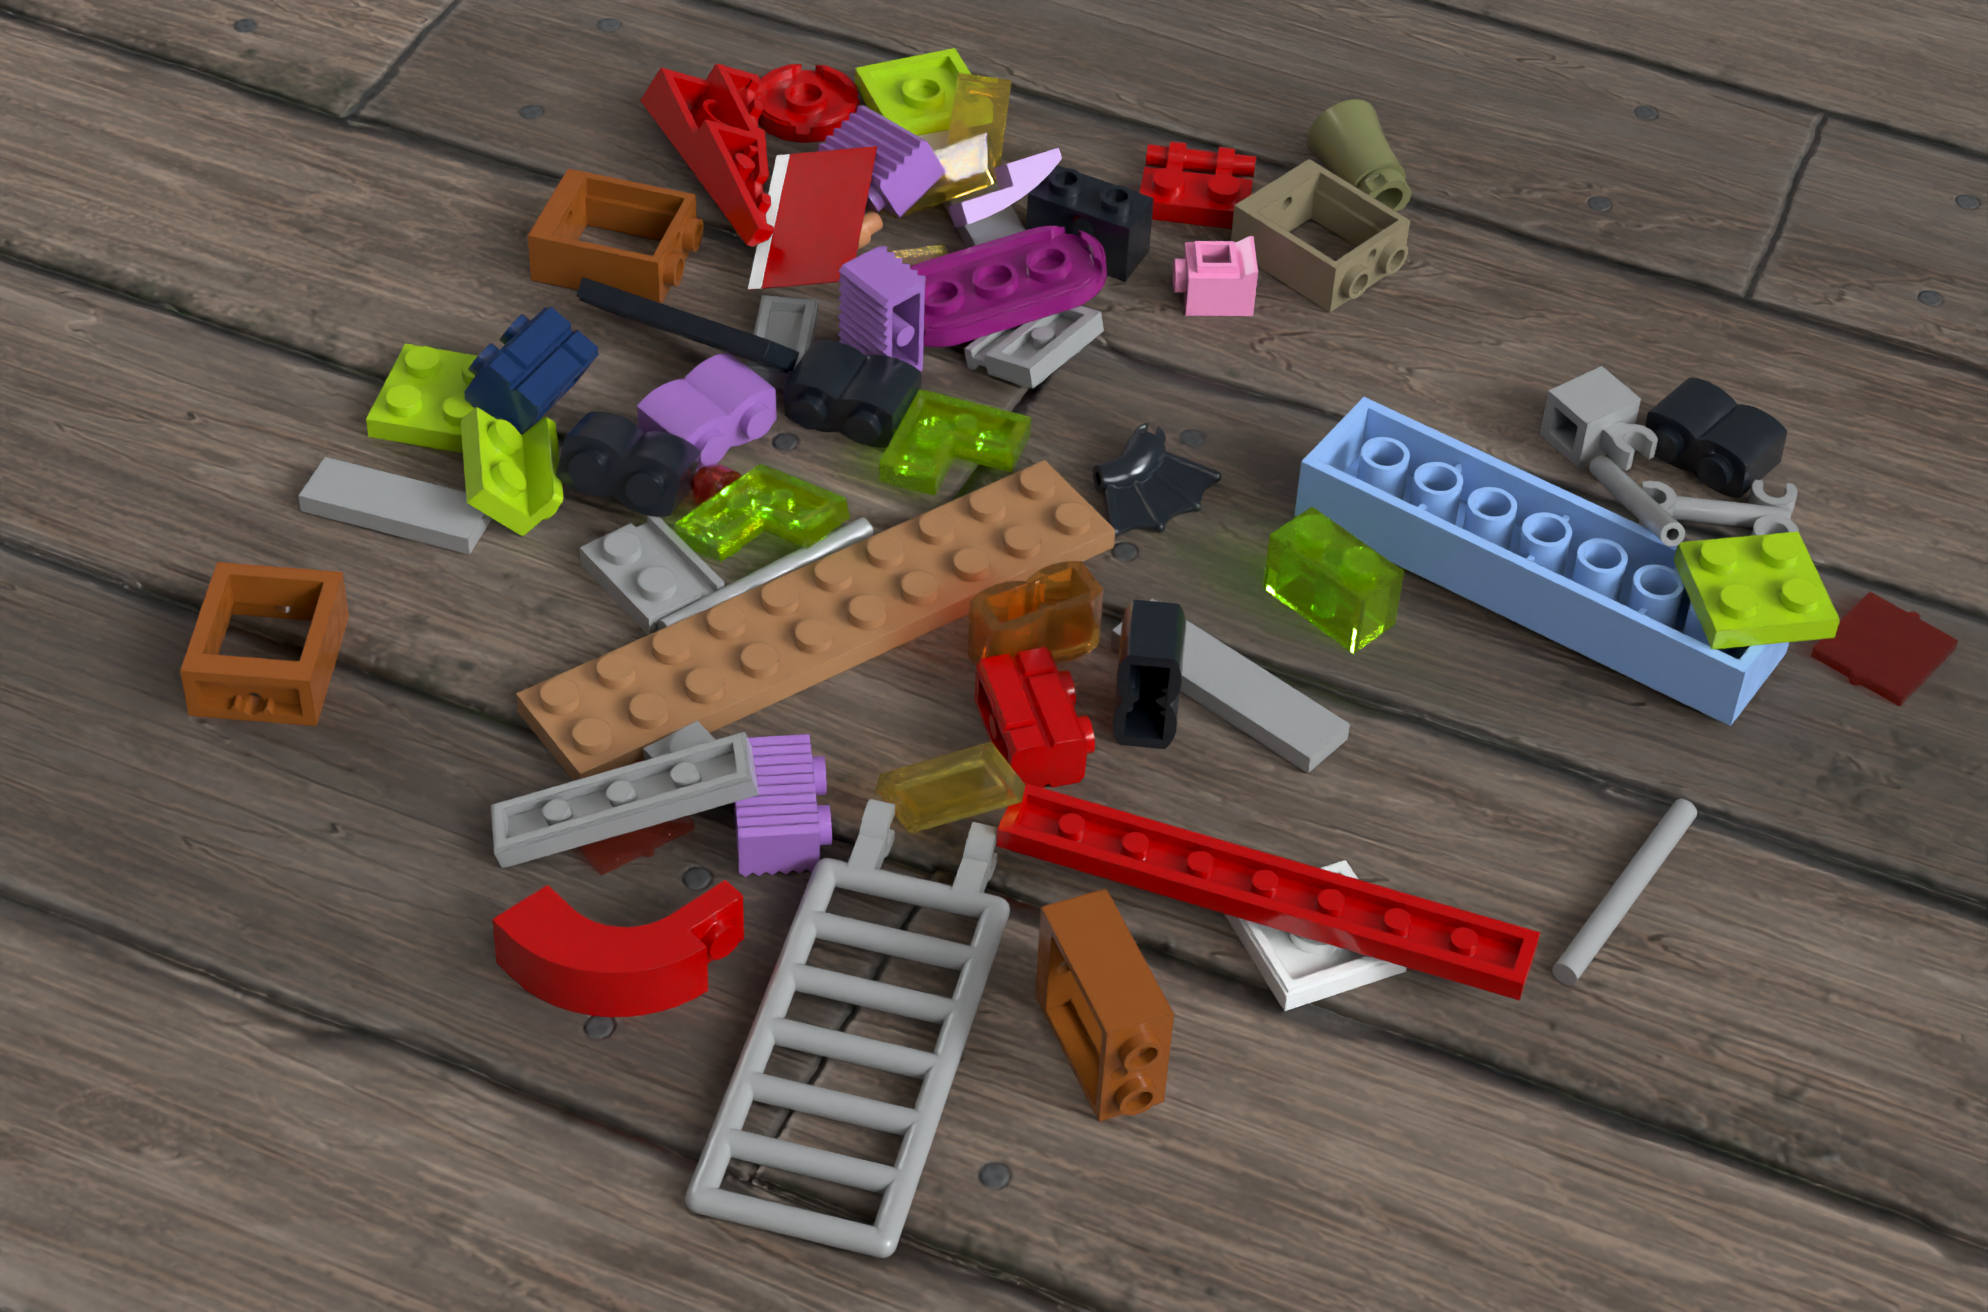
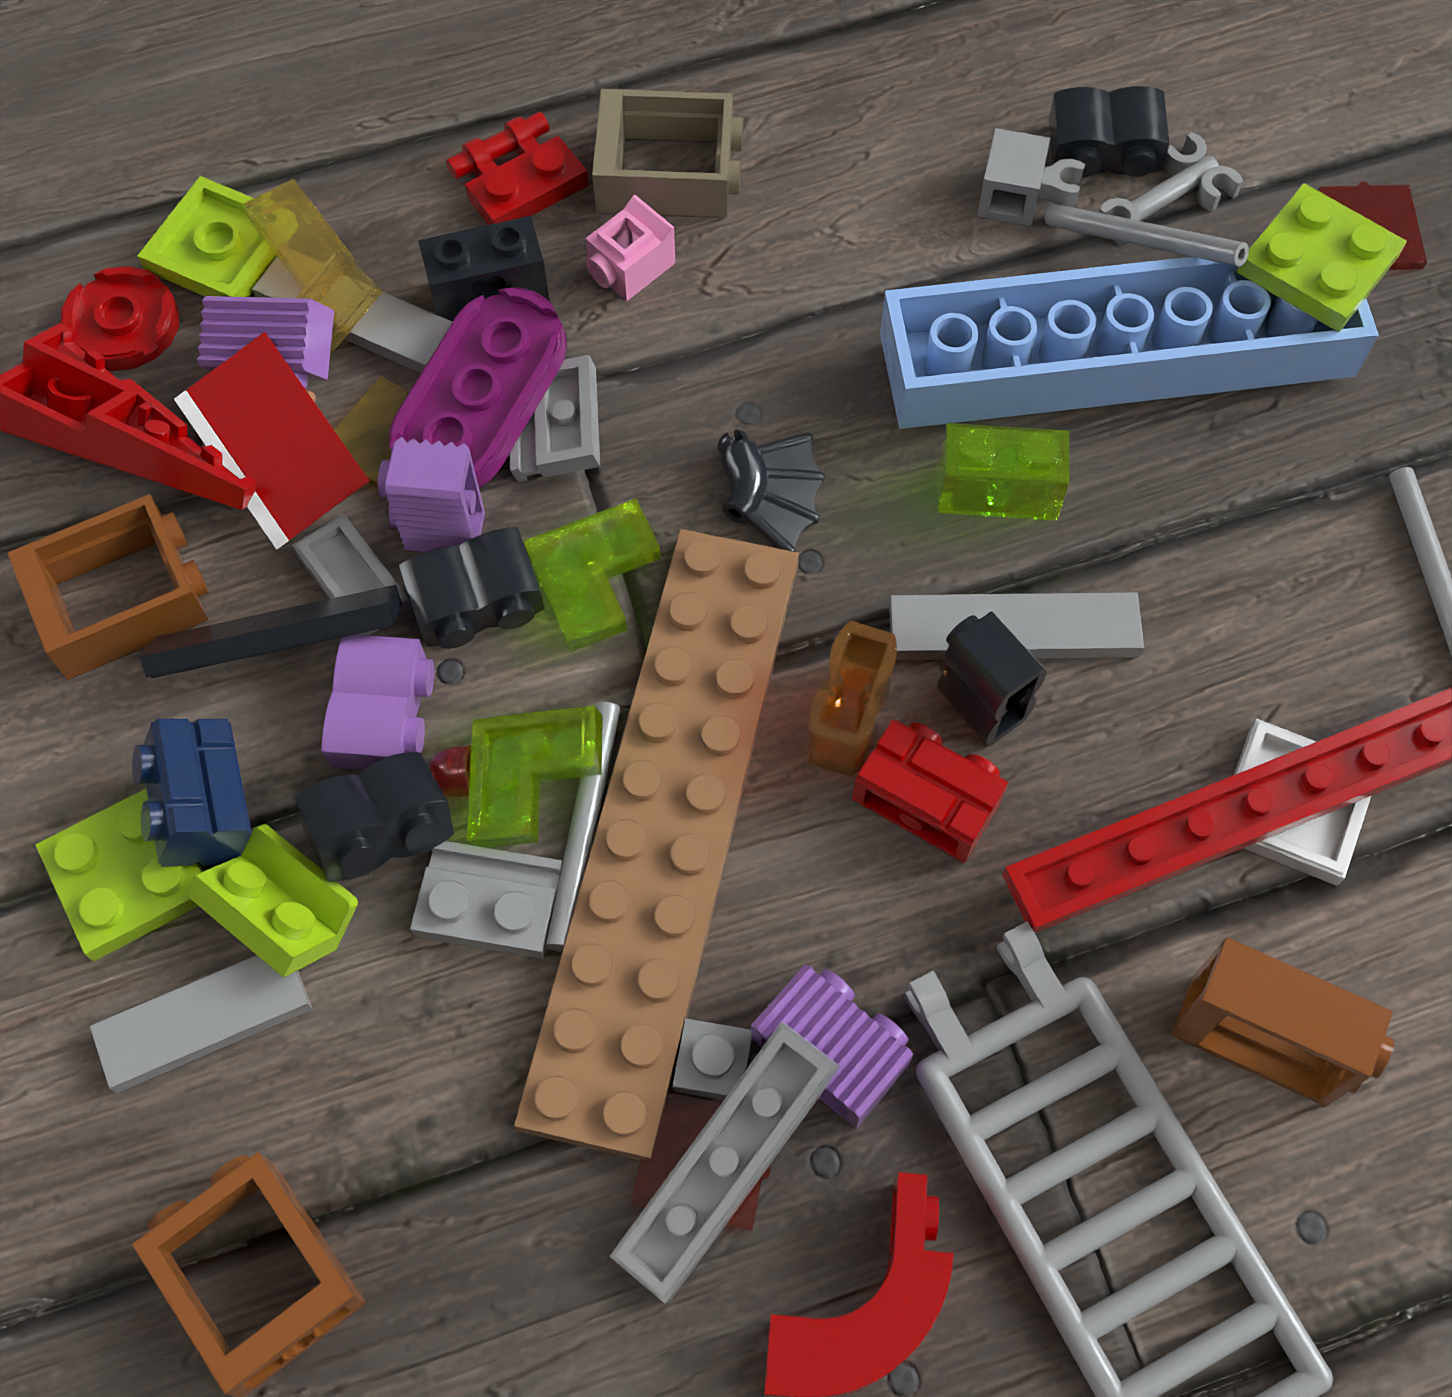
camera: 40 degrees left, 20 degrees up
(951, 787) = (963, 919): clear yellow tile -> none
(1013, 181) = (408, 280): lavender slope -> none
(1355, 149) = (621, 56): olive plant -> none

